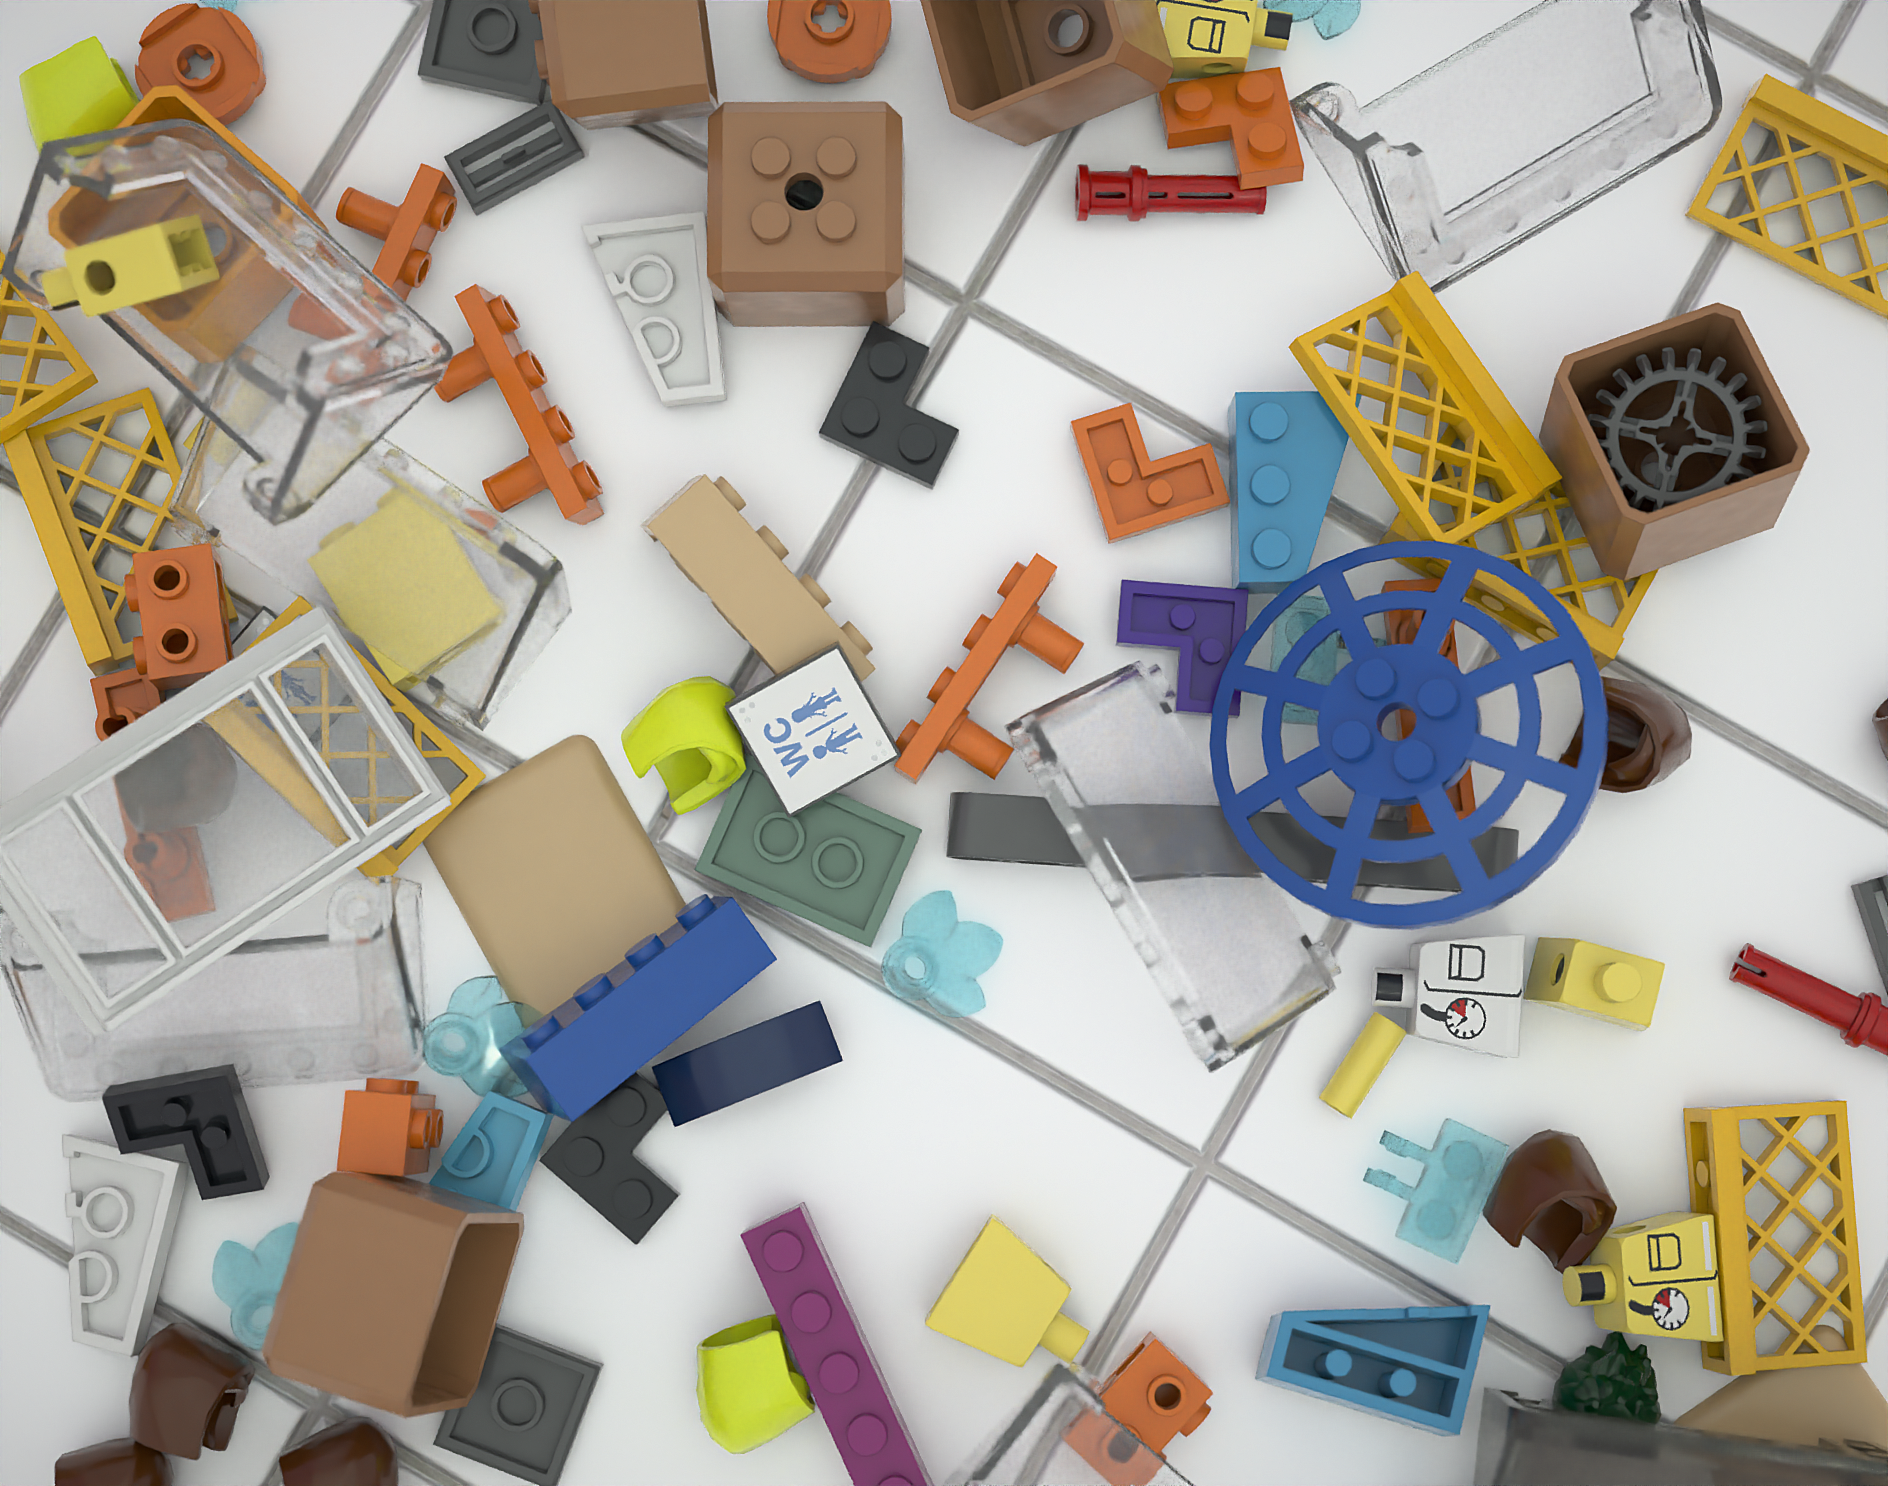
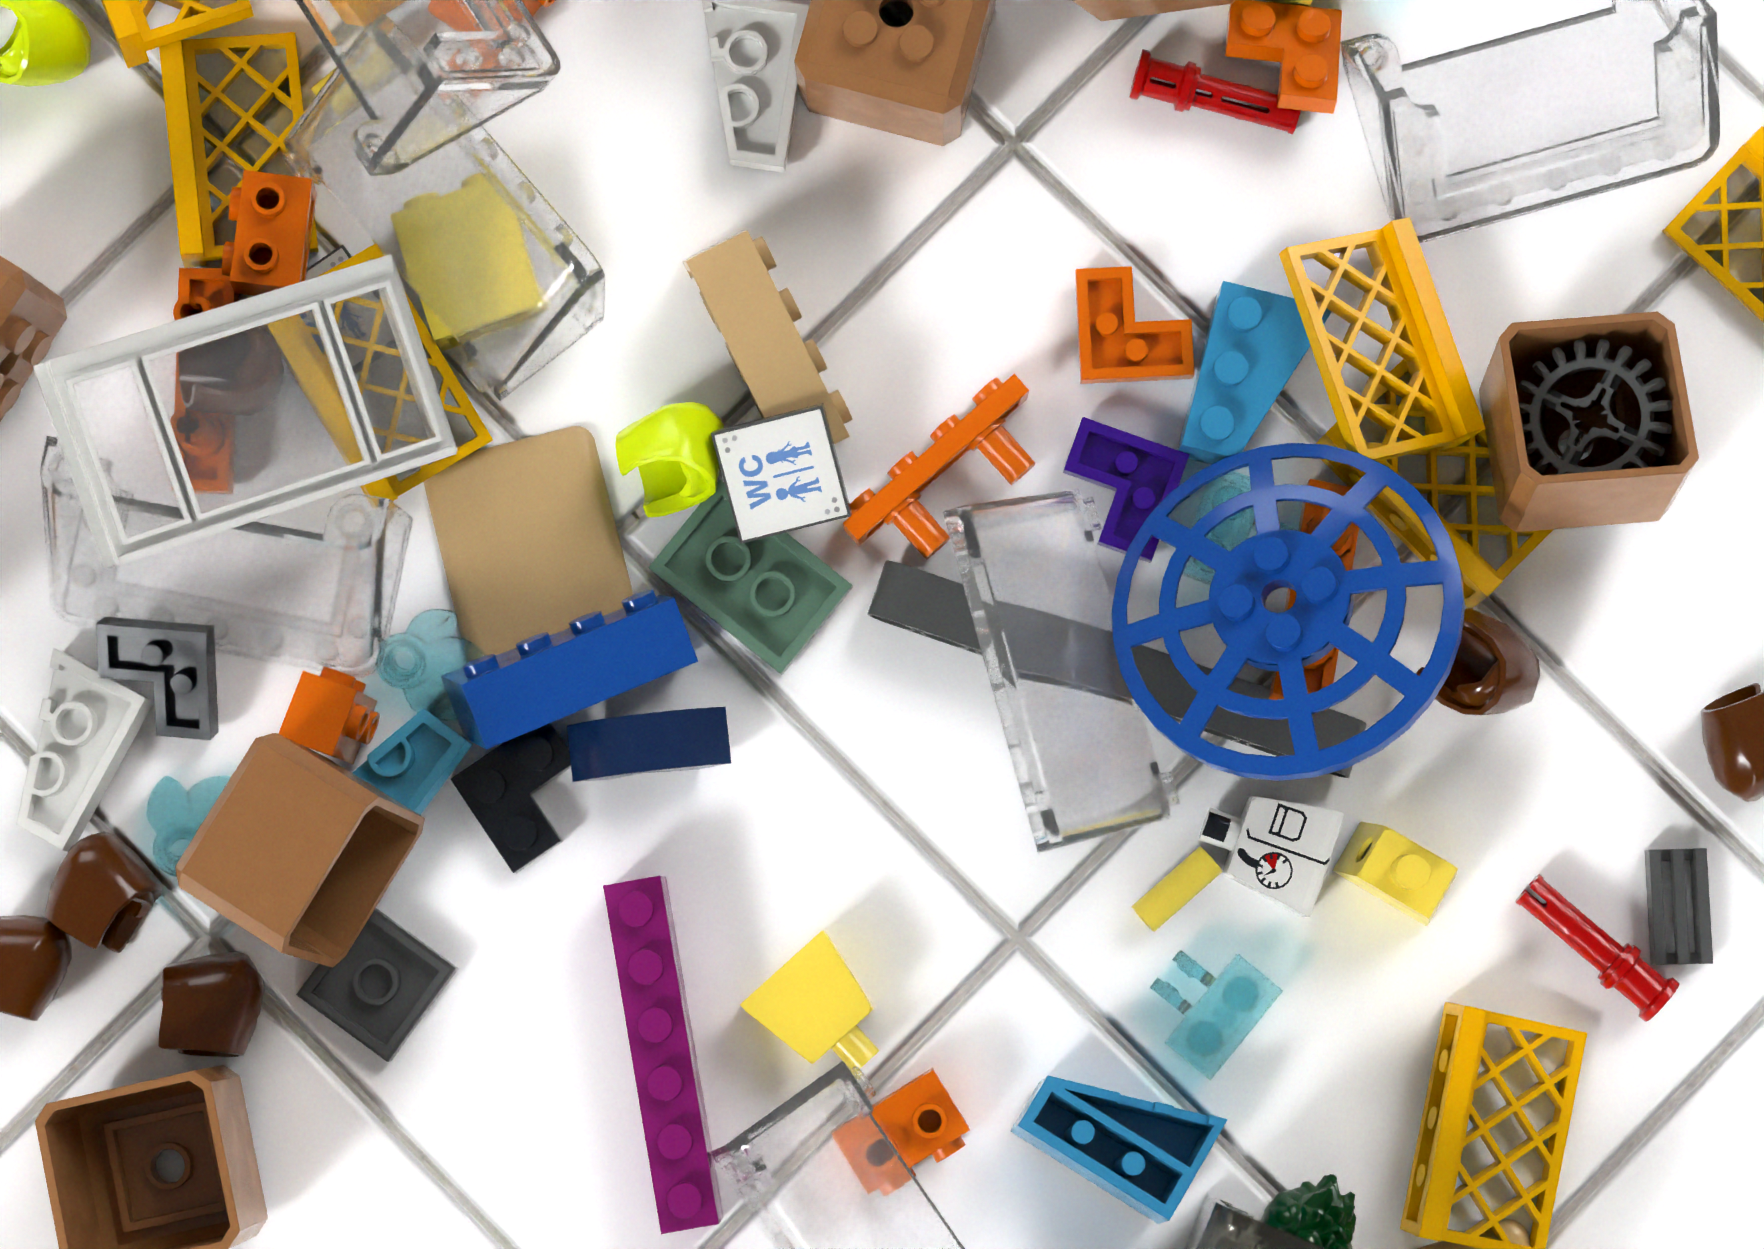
camera: 20 degrees right, 0 degrees up
(544, 427) = (622, 155): orange plate -> none
(749, 1385) = (577, 1018): neon yellow piece -> none
(872, 413) = (908, 223): black plate -> none
(951, 954) = (847, 695): clear light blue plate -> none
(1552, 1198) = (1307, 1045): reddish brown piece -> none
(1653, 1278) = (1374, 1137): light yellow torso -> none

